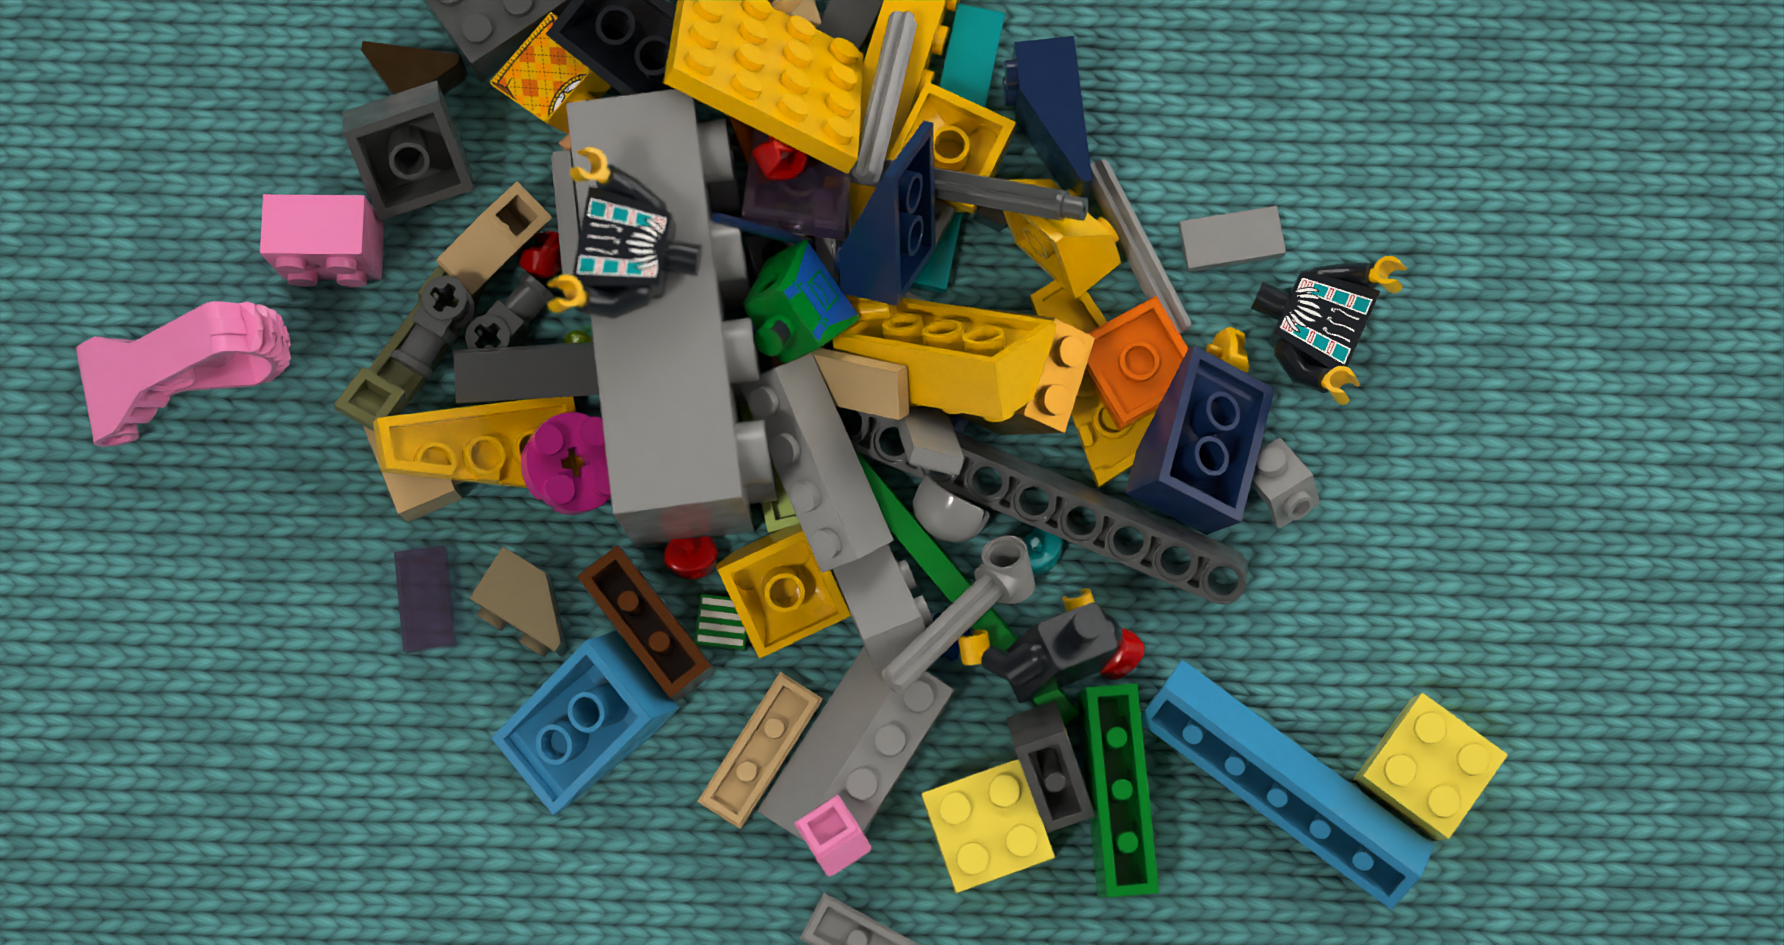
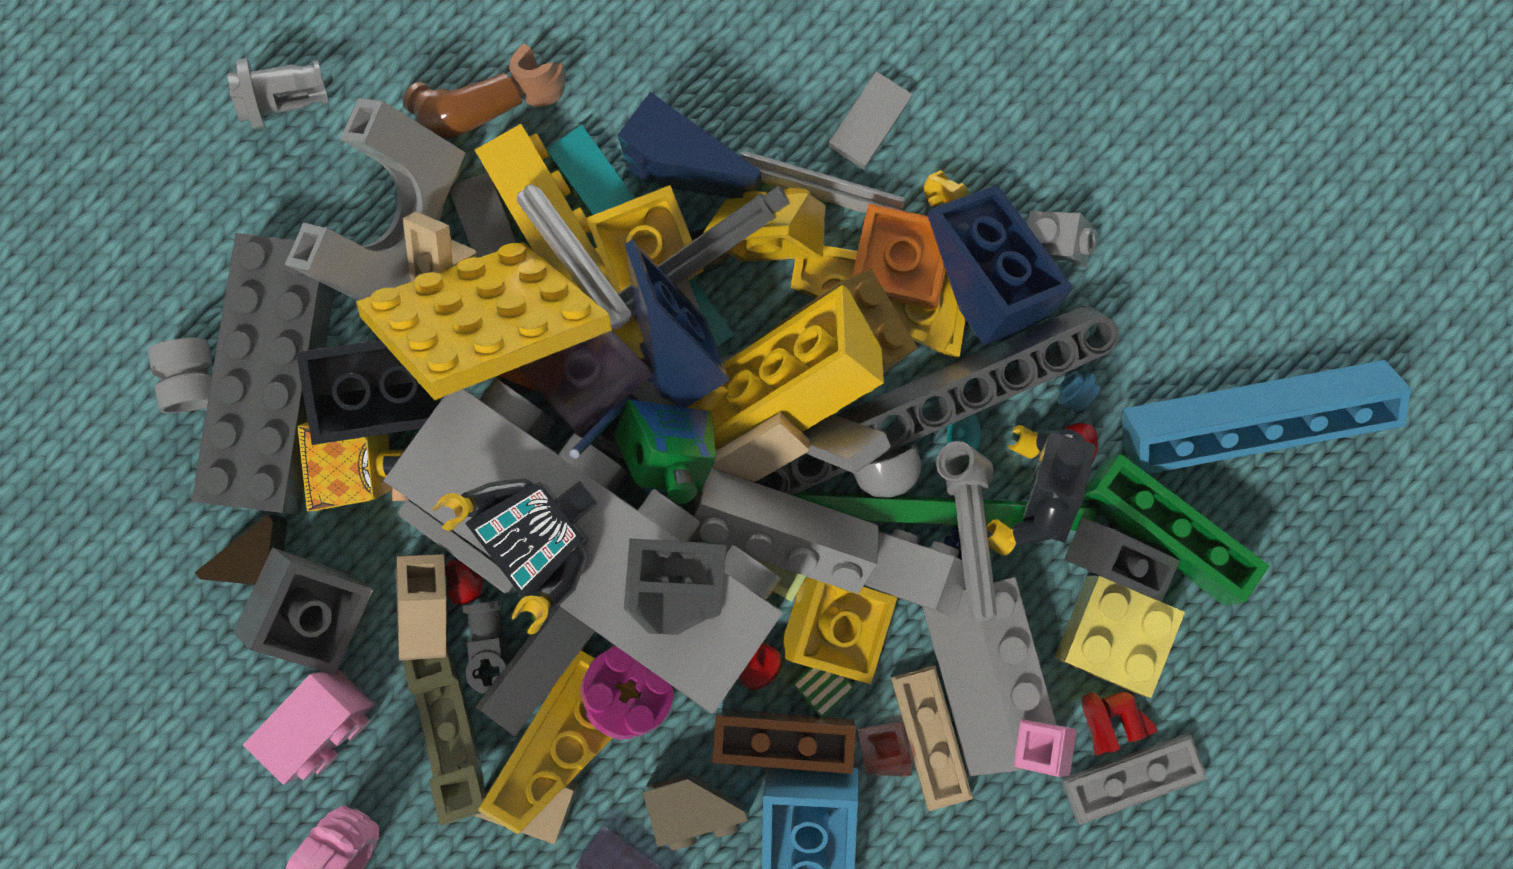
camera: 50 degrees left, 5 degrees up
(435, 325) = (446, 702): dark grey connector -> none
(686, 388) = (673, 584): none -> dark grey slope
(715, 722) = (885, 750): none -> clear red slope
(779, 160) = (558, 368): red piece -> none
(935, 887) = (1098, 717): none -> red piece
(1164, 611) = (1078, 390): none -> dark azure plate
(1324, 320) = (982, 112): torso -> none
(1430, 767) = (1332, 315): light yellow brick -> none

